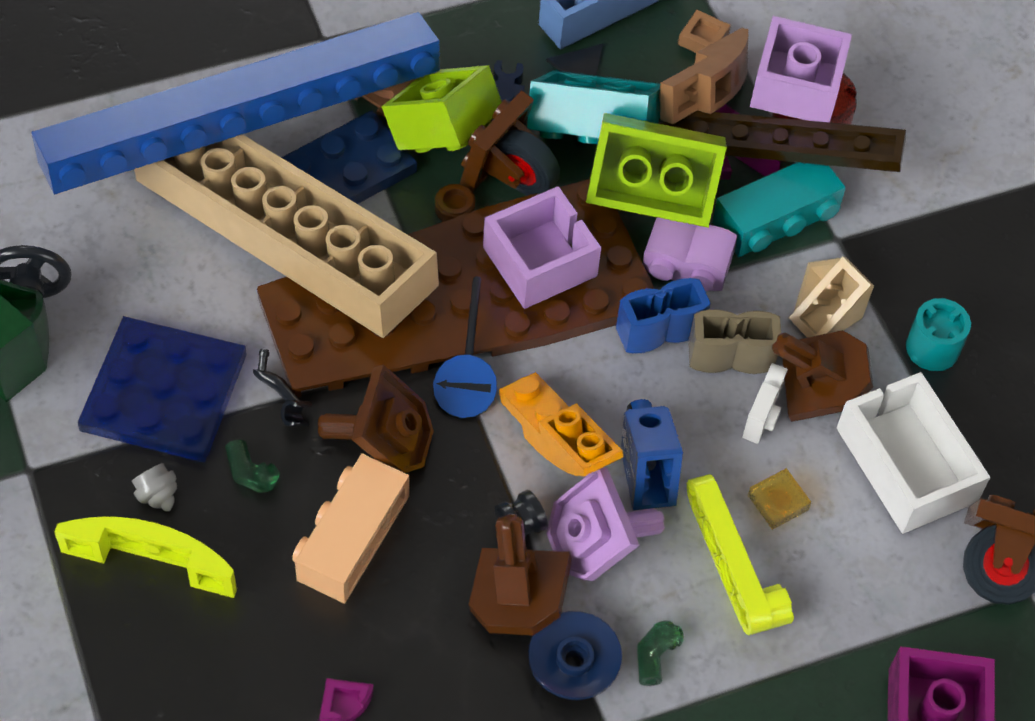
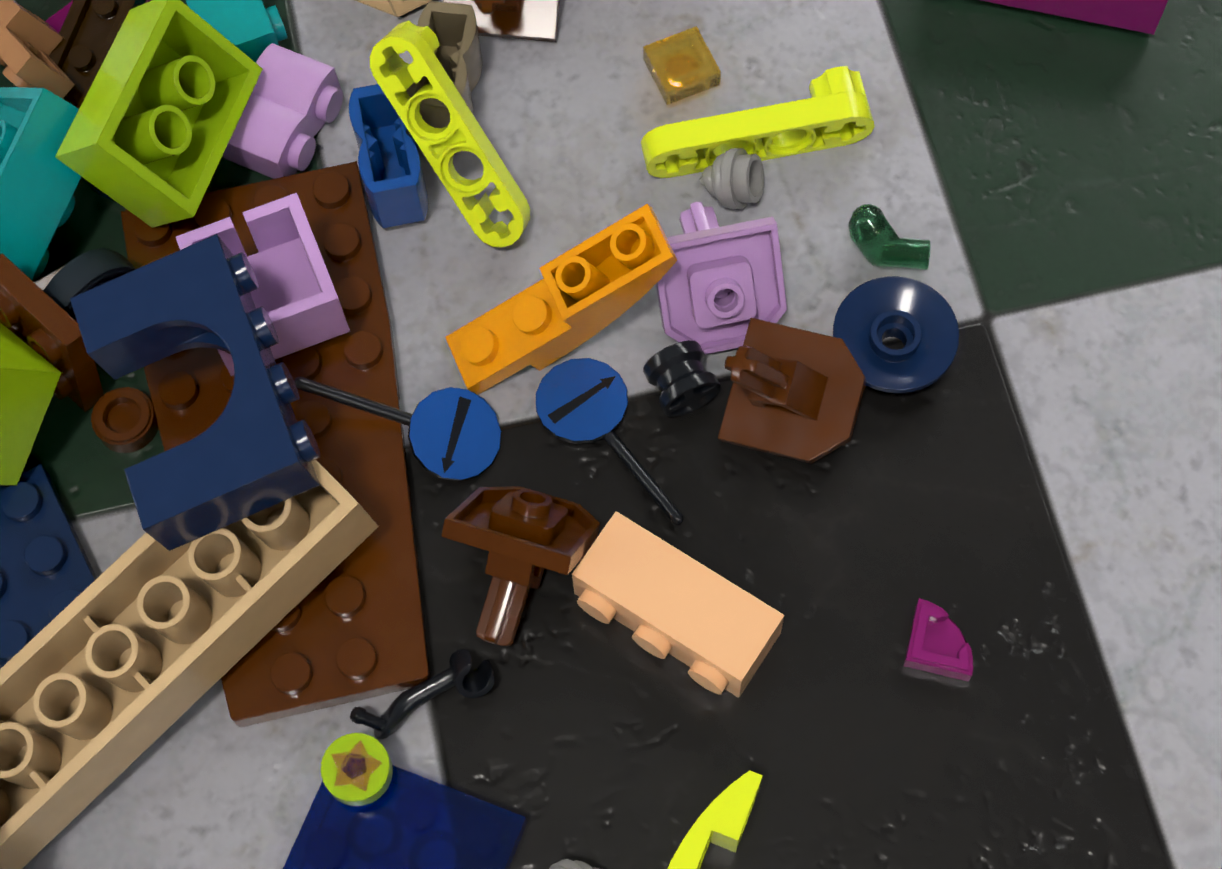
camera: 75 degrees left, 10 degrees up
(224, 350) = (356, 769): none -> lime tile
(250, 475) = (562, 753): clear green arm -> none
(410, 241) = (256, 446): none -> dark blue arch
(499, 465) = (586, 403): none -> blue piece
(651, 436) = (599, 189): blue torso -> none
(689, 542) = (735, 178): none -> light grey plate
(703, 301) = (442, 143): none -> neon yellow beam
(764, 412) = (544, 59): white plate -> none

